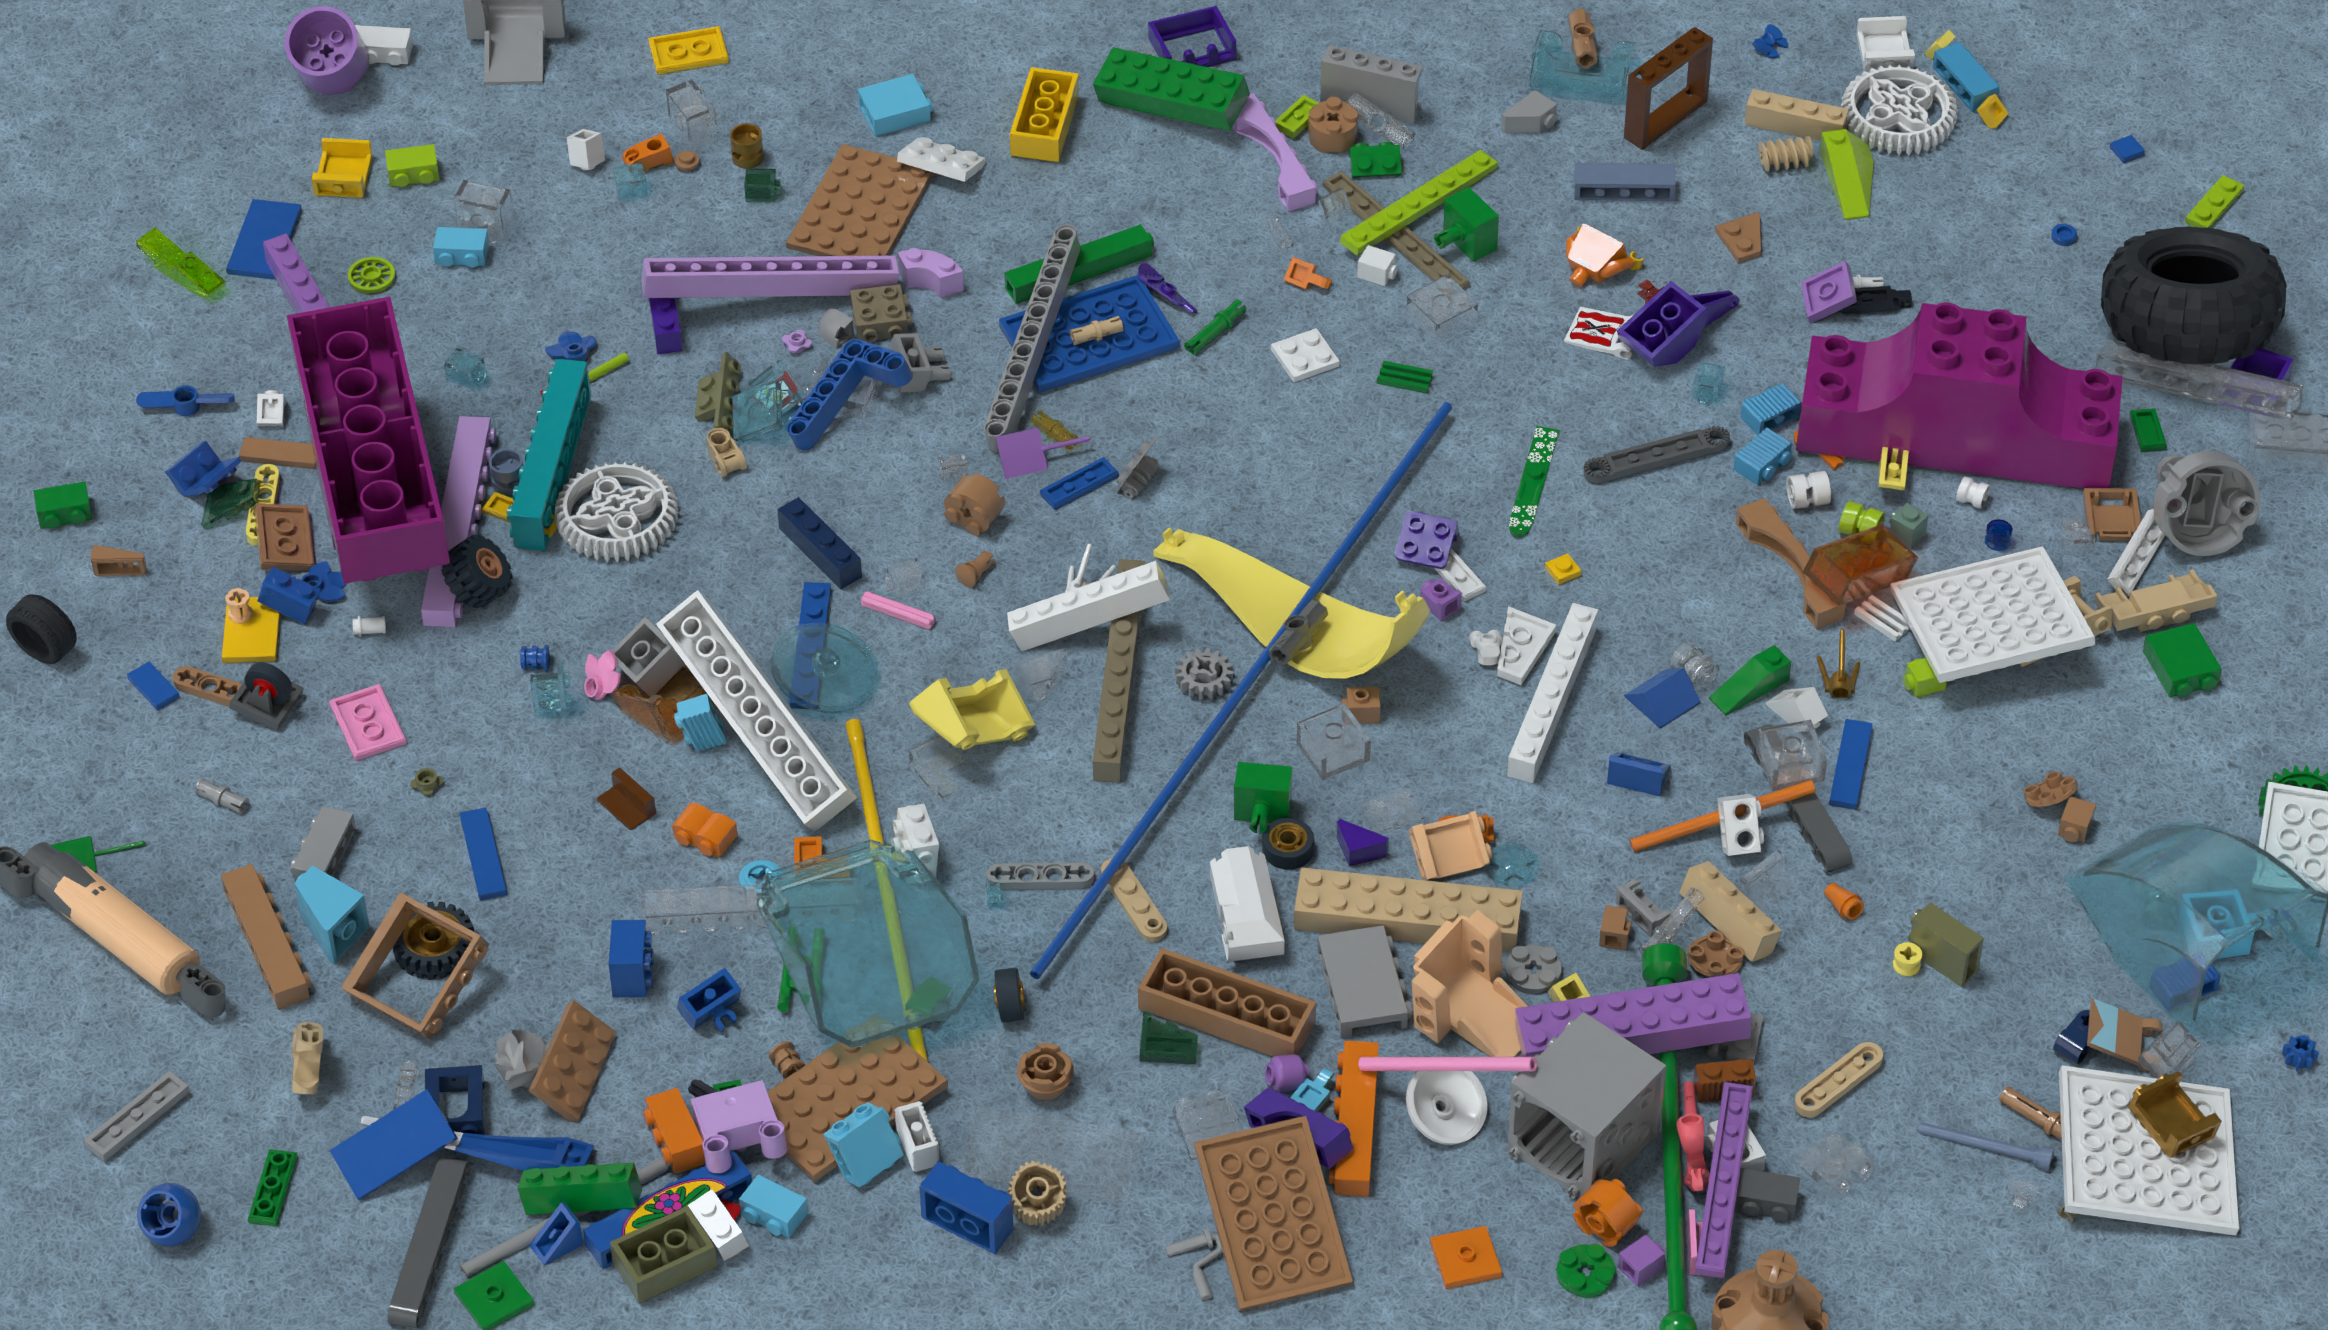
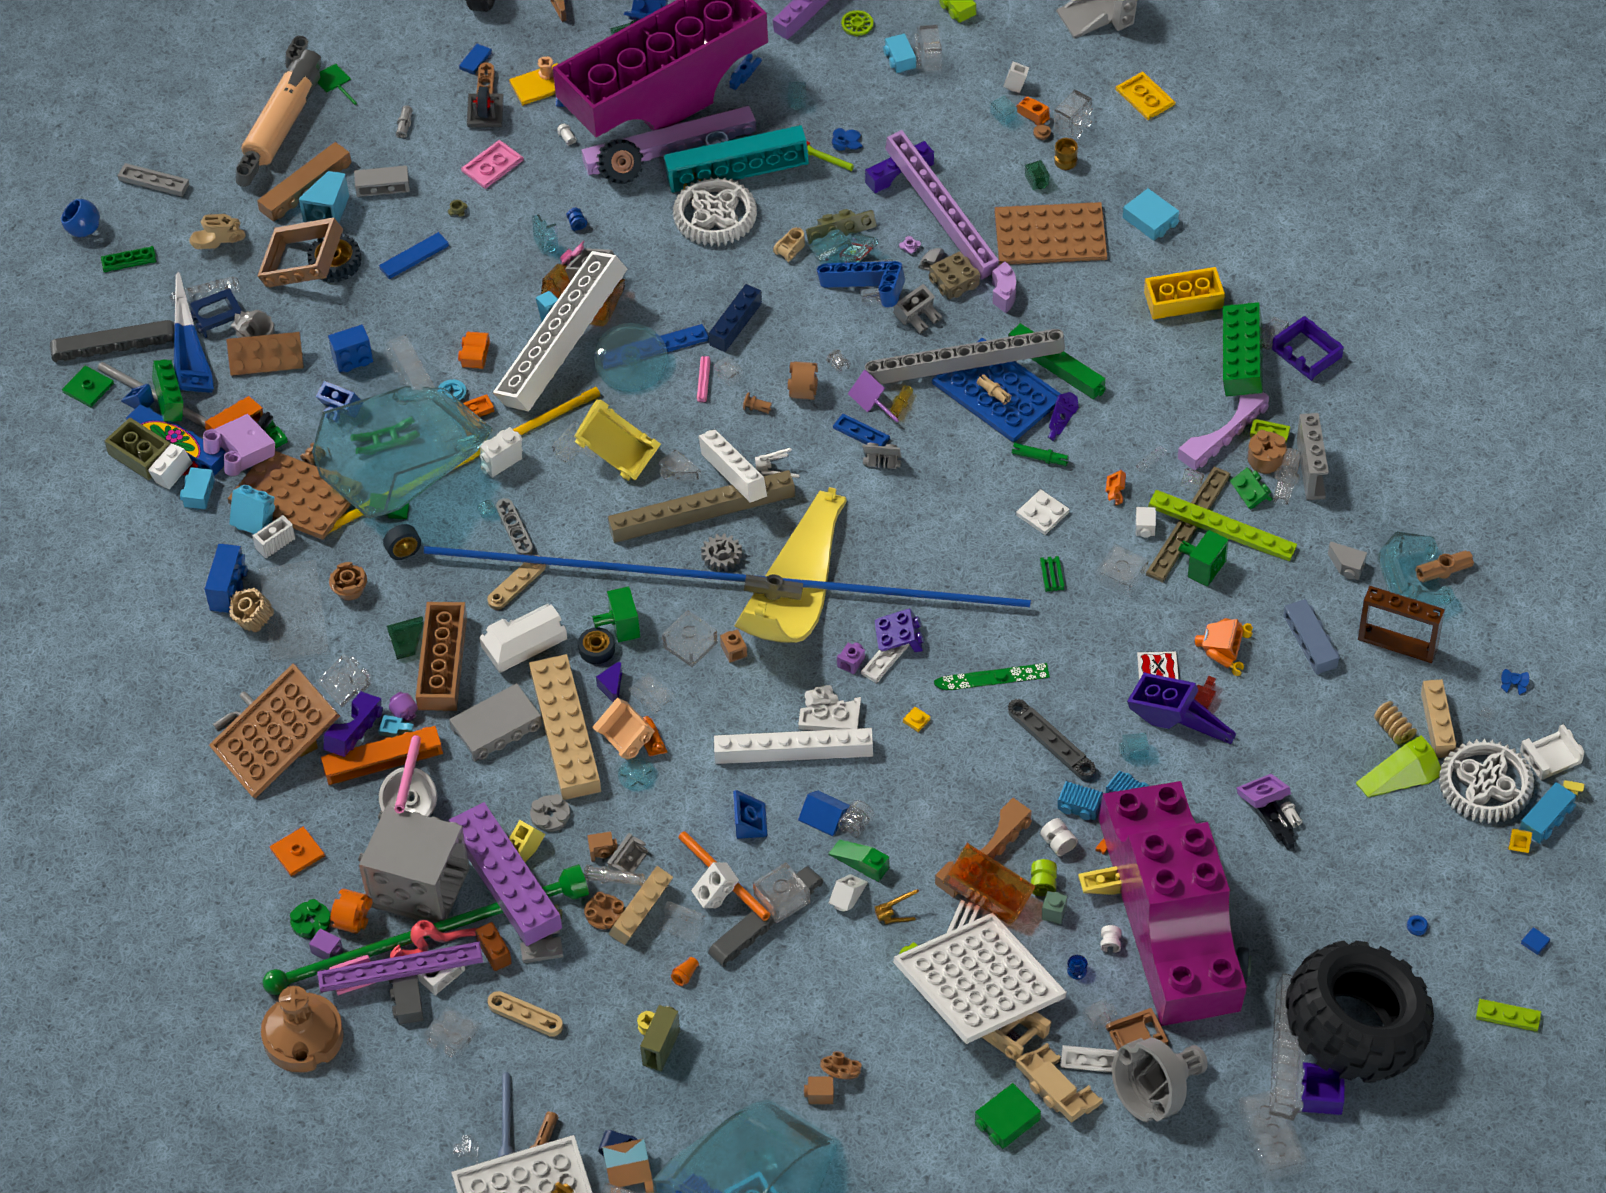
camera: 70 degrees right, 5 degrees up
(393, 1144) = (166, 294): blue tile -> none
(627, 800) = (484, 305): reddish brown panel -> none
(941, 159) = (1113, 256): white plate -> none
(1461, 987) = (502, 770): light nougat piece -> none
(1741, 237) = (1299, 725): medium nougat wing -> none
(1850, 764) = (815, 940): blue tile -> none
(2147, 430) = (1238, 1034): green tile -> none

